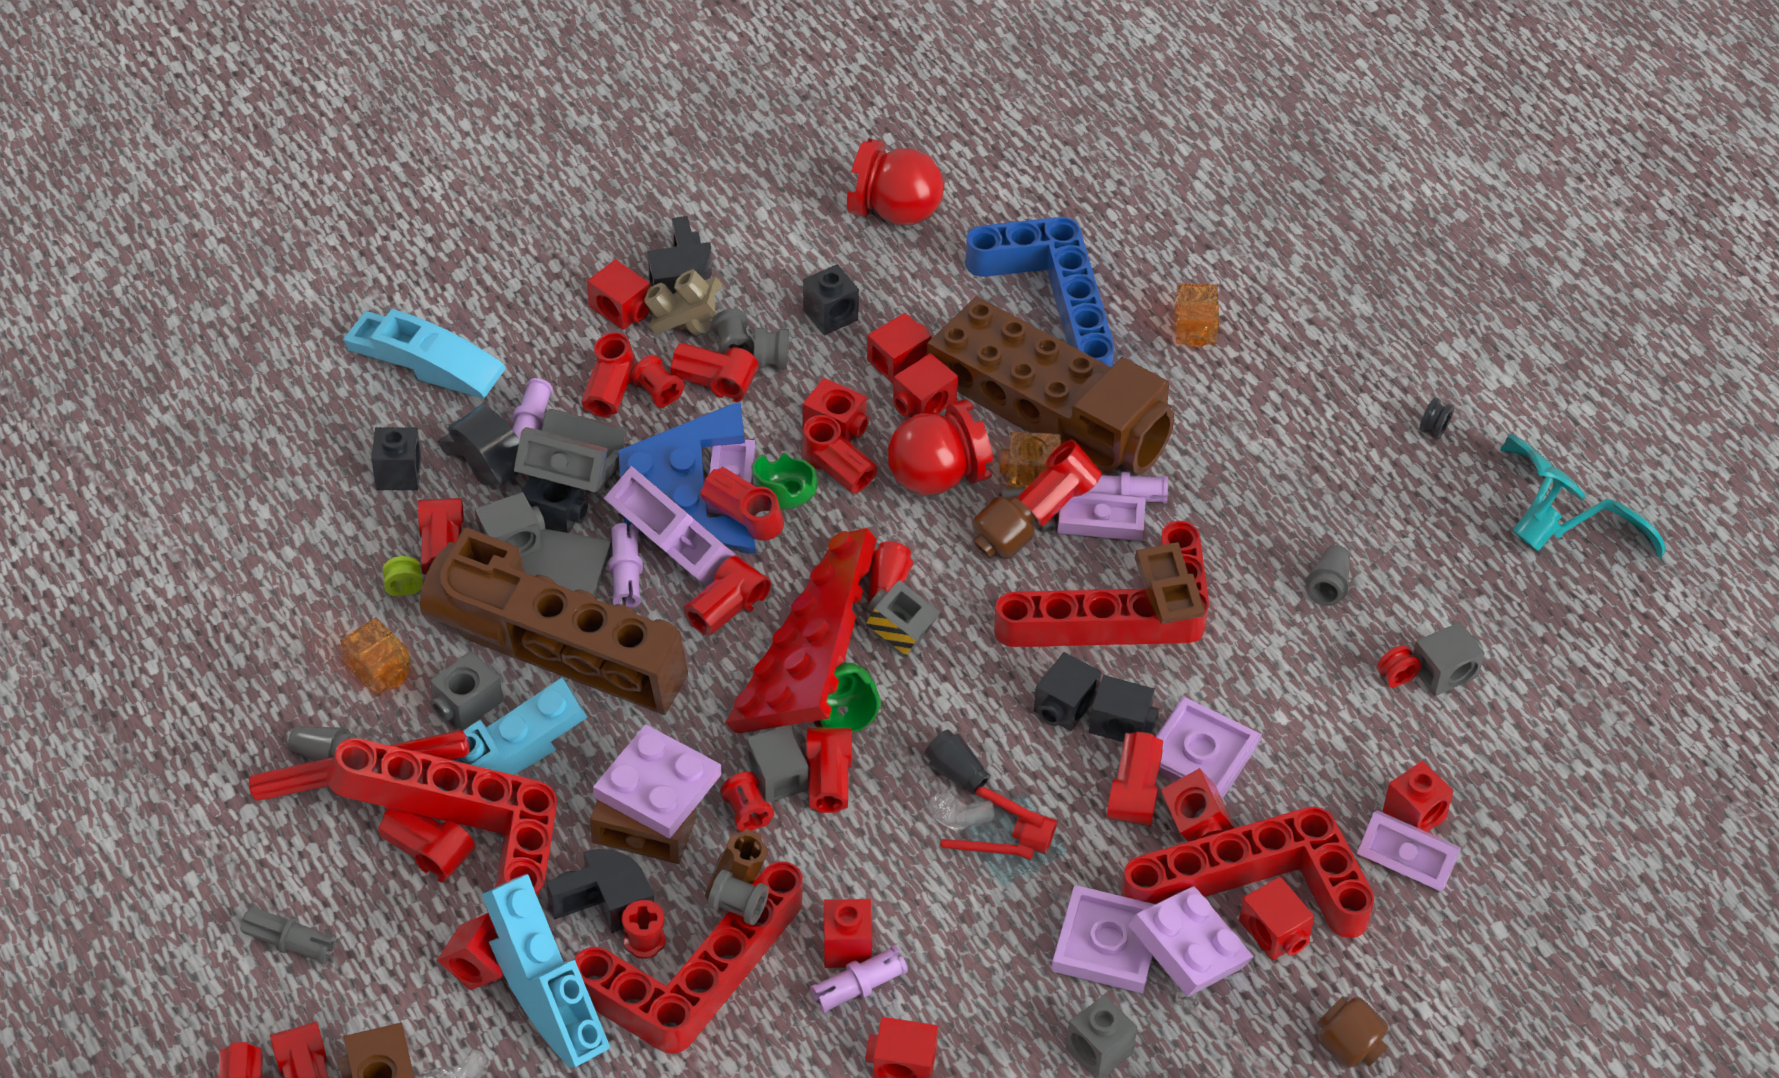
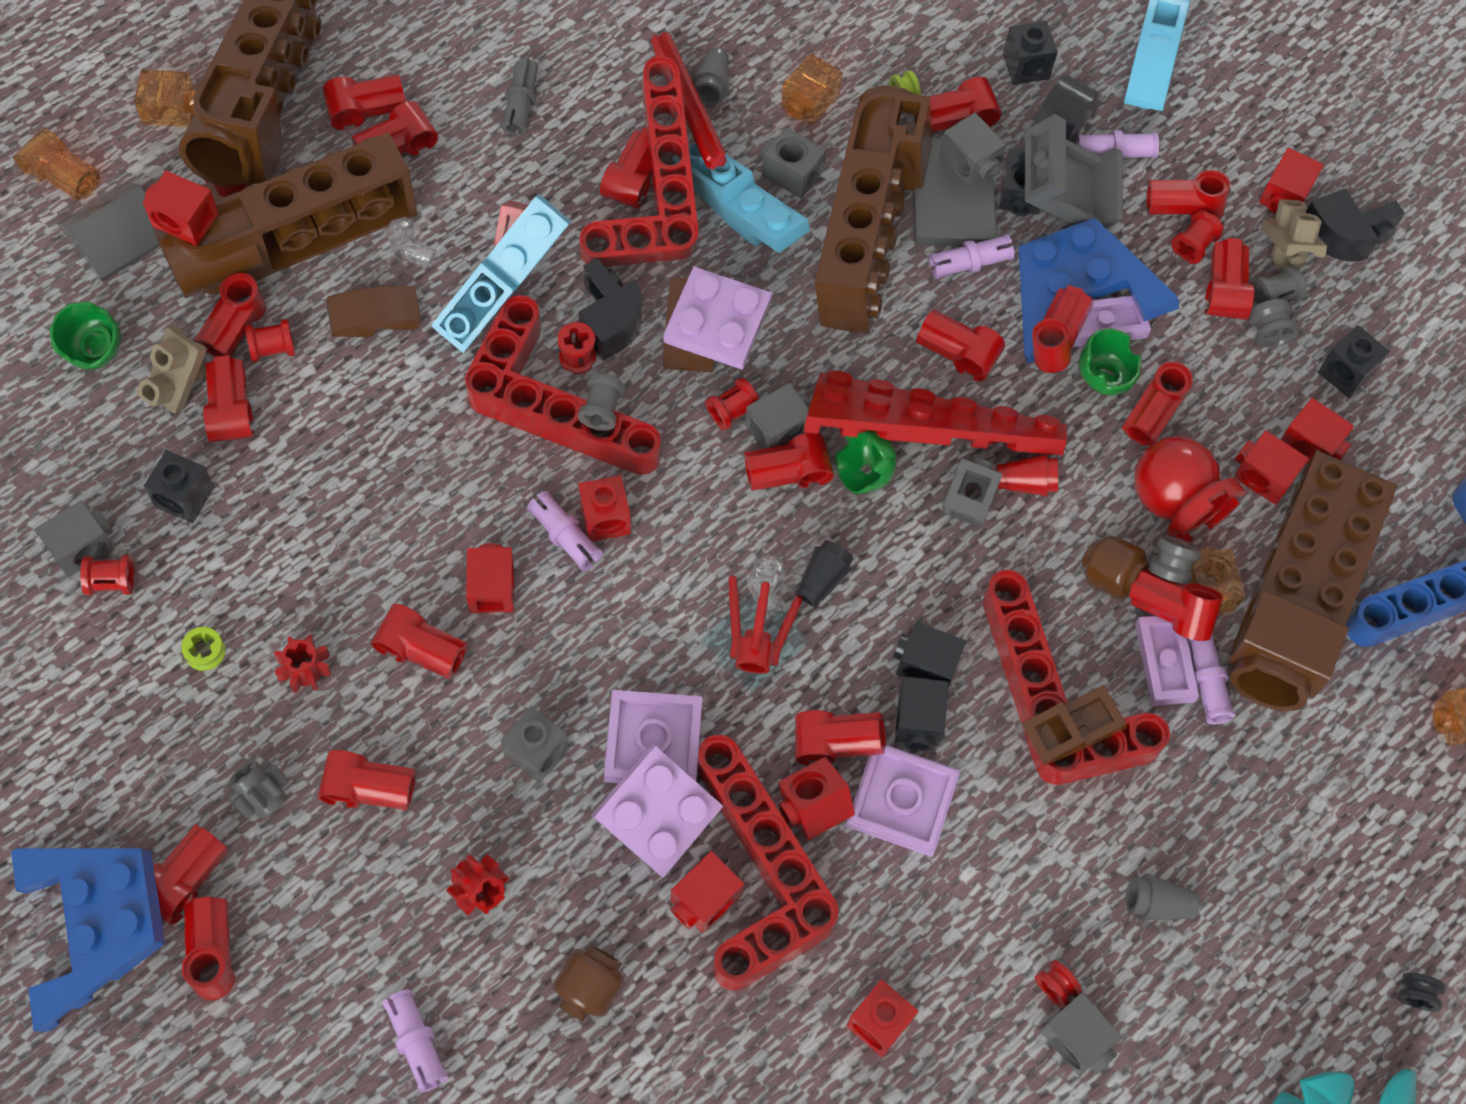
camera: 75 degrees right, 15 degrees up
(668, 525) = (1018, 276): lavender slope -> none
(742, 857) = (645, 401): reddish brown piece -> none
(840, 404) = (1216, 380): red brick -> none
(1017, 471) = (1175, 559): none -> dark grey wheel
(1409, 850) = (821, 1018): lavender plate -> none

